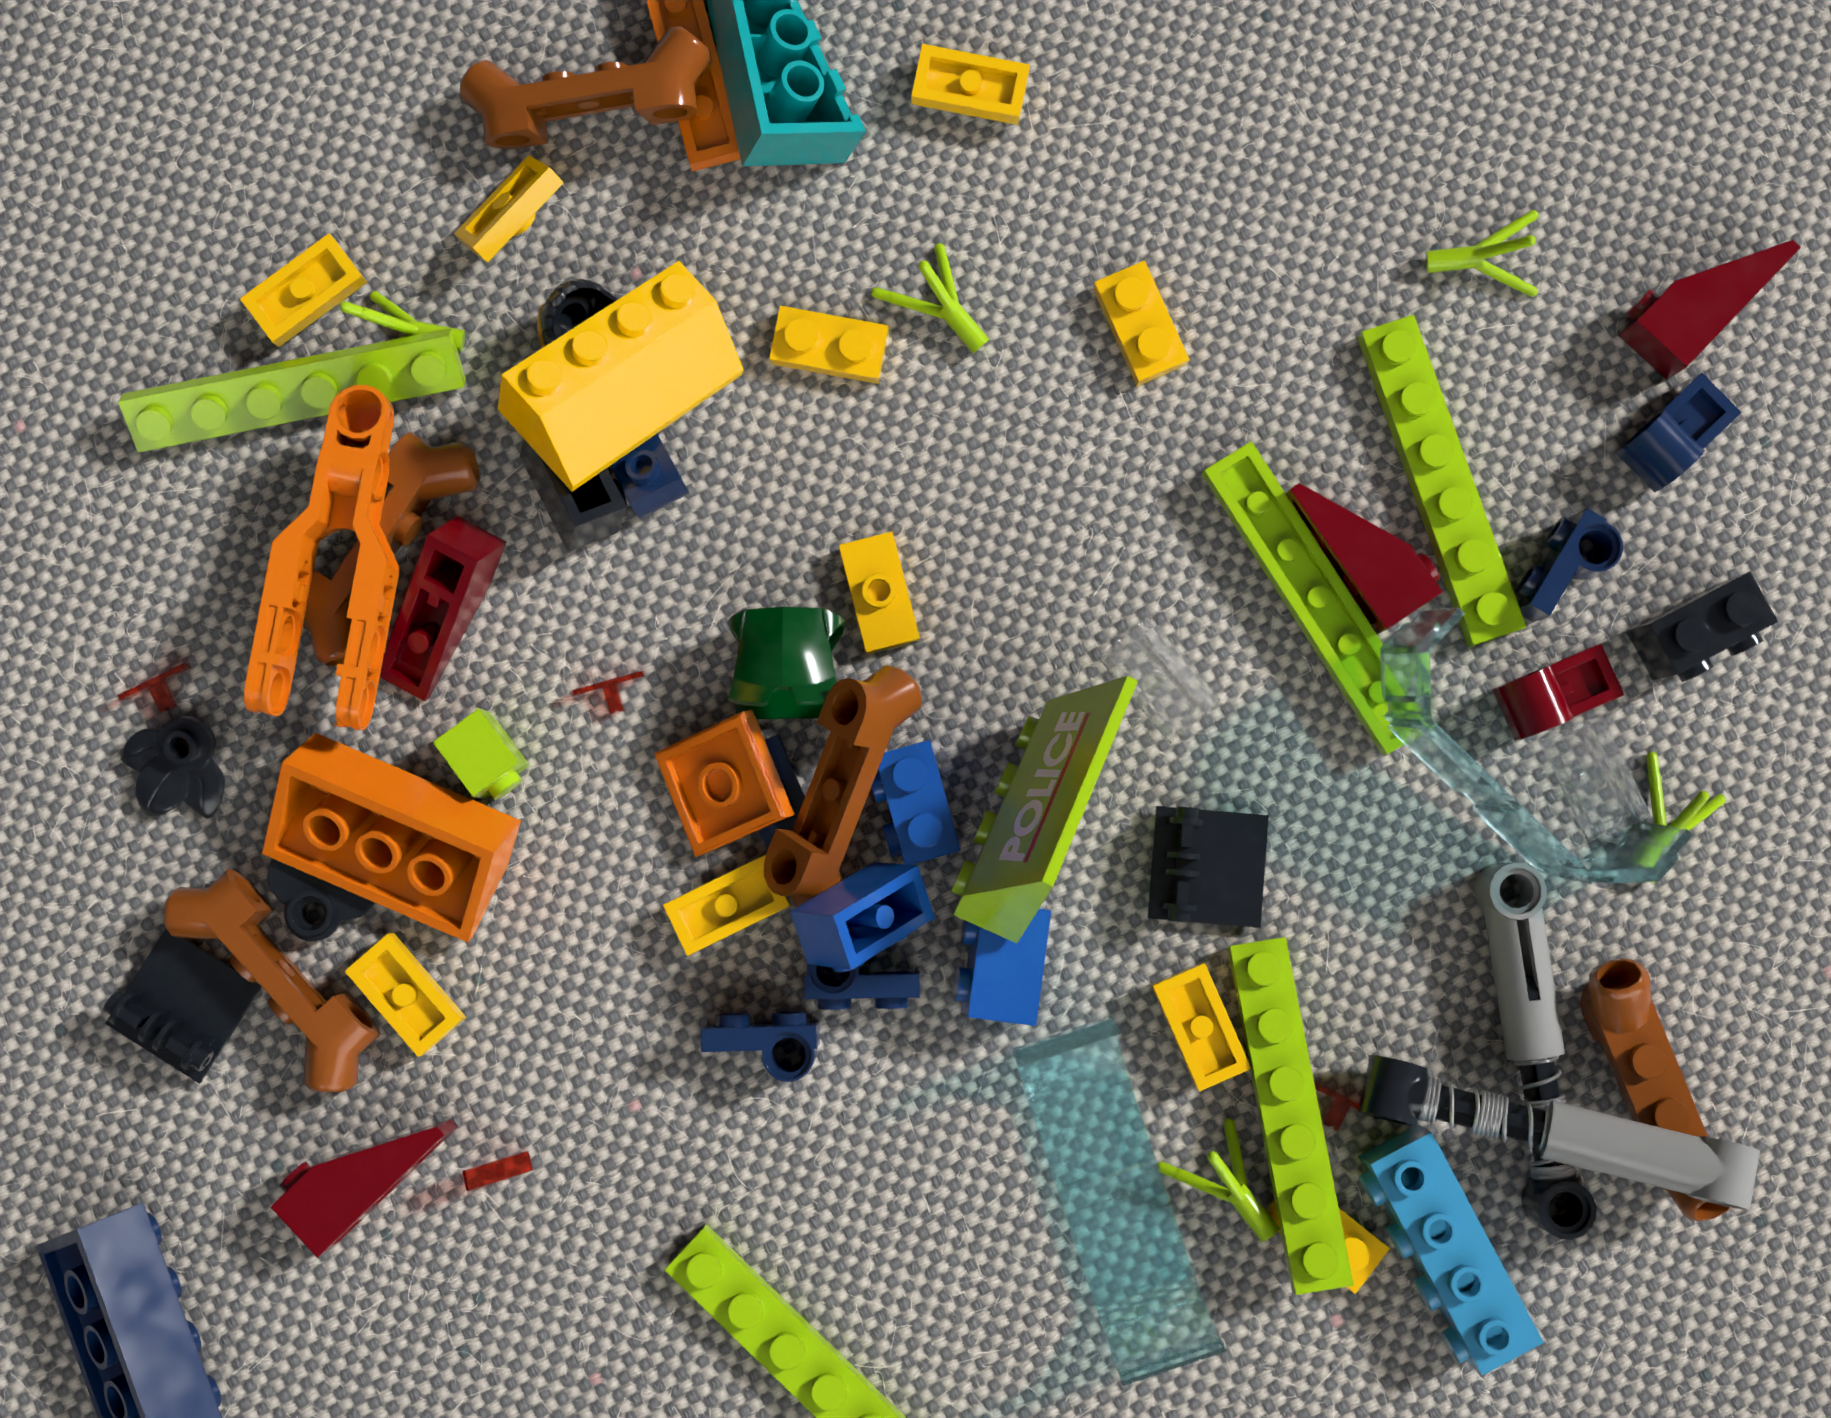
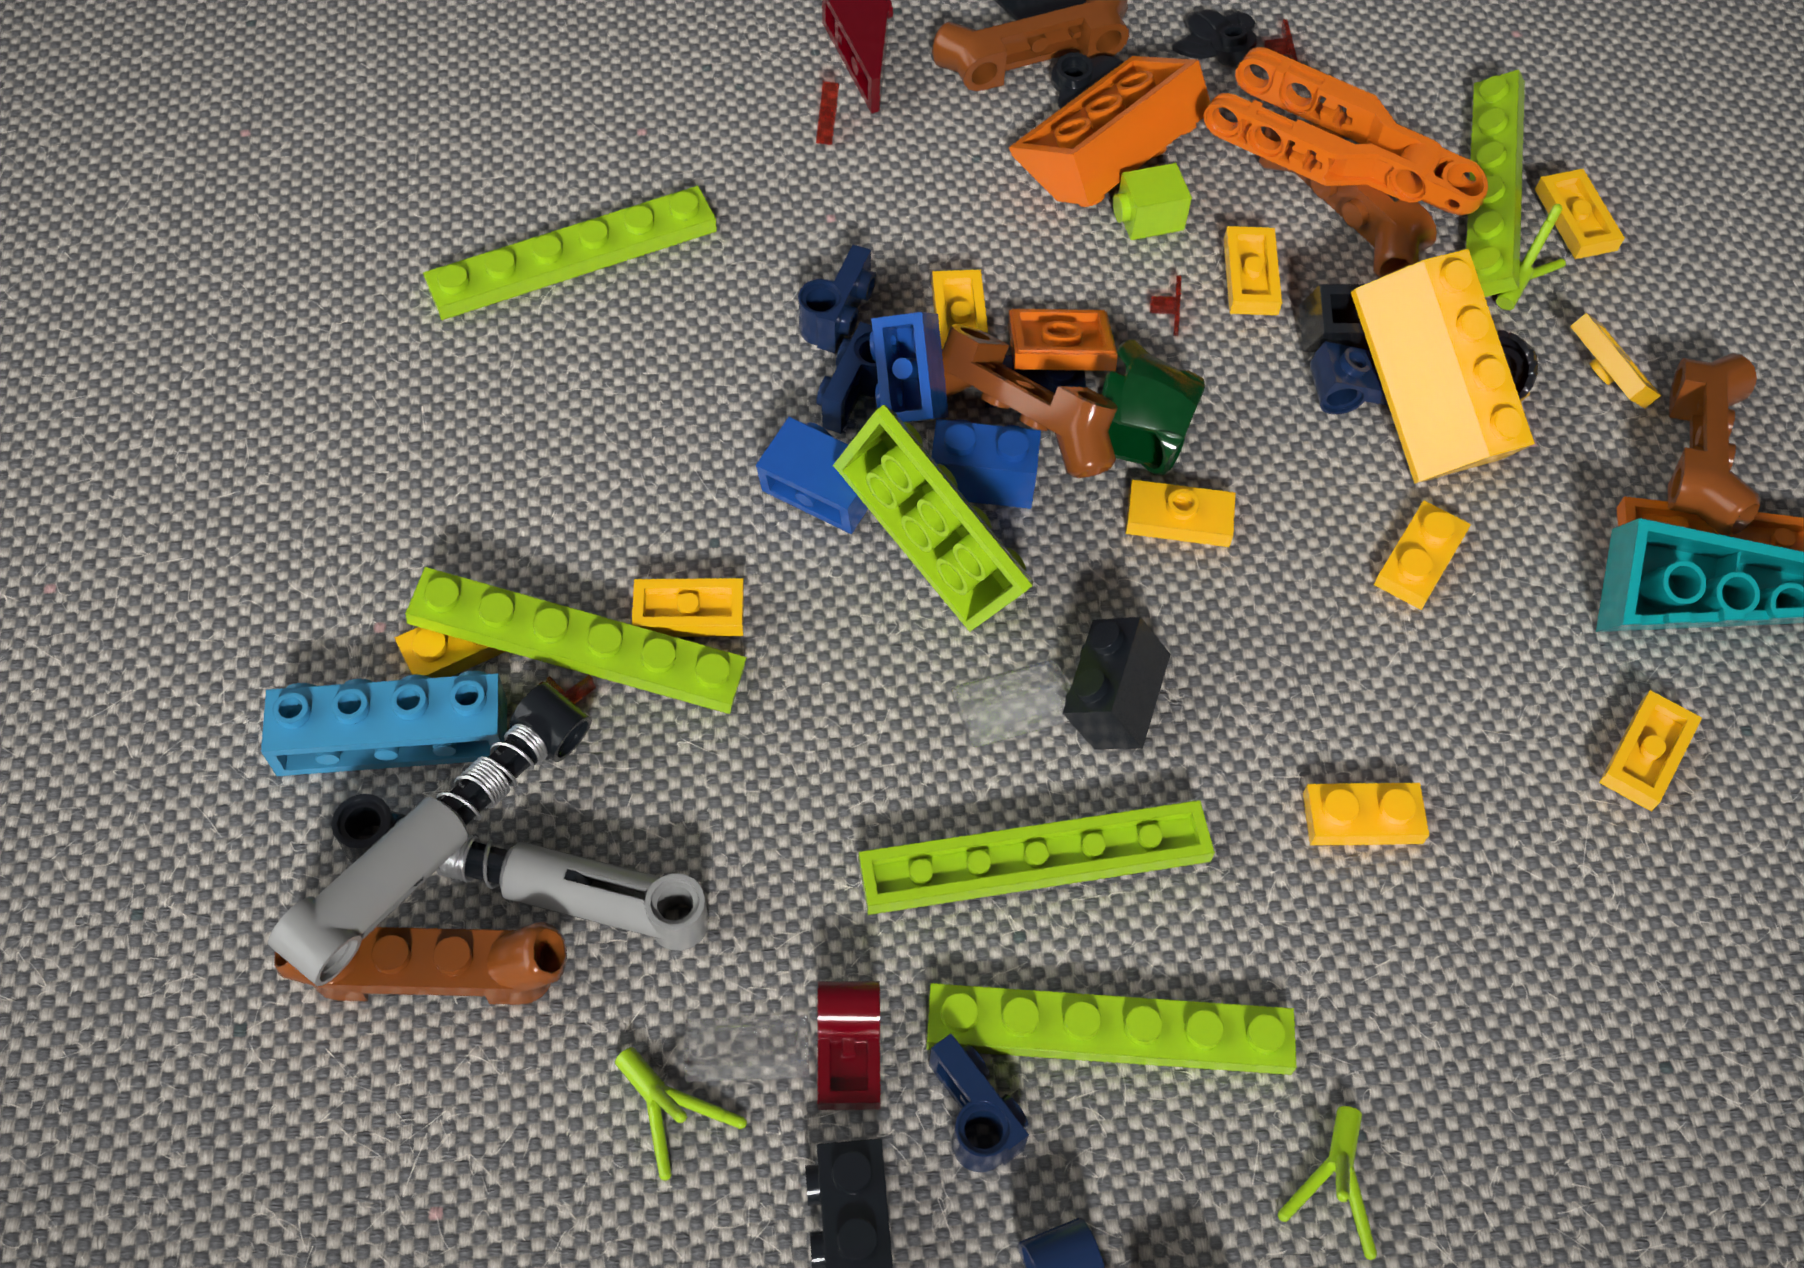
camera: 105 degrees right, 25 degrees down
(405, 994) = (986, 105): yellow plate -> none
(440, 604) = (1308, 219): dark red slope -> none
(534, 616) = (1252, 270): none -> yellow plate
(946, 293) = (1426, 655): lime plant -> none
(1116, 1201) = (575, 494): clear light blue windscreen -> none
(1122, 584) = (1117, 683): none -> black brick
(1208, 866) = (824, 671): black hinge -> none
(1237, 1187) = (527, 577): lime plant -> none
(1373, 564) = (1045, 915): dark red slope -> none
(1406, 685) = (766, 905): clear light blue windscreen -> none

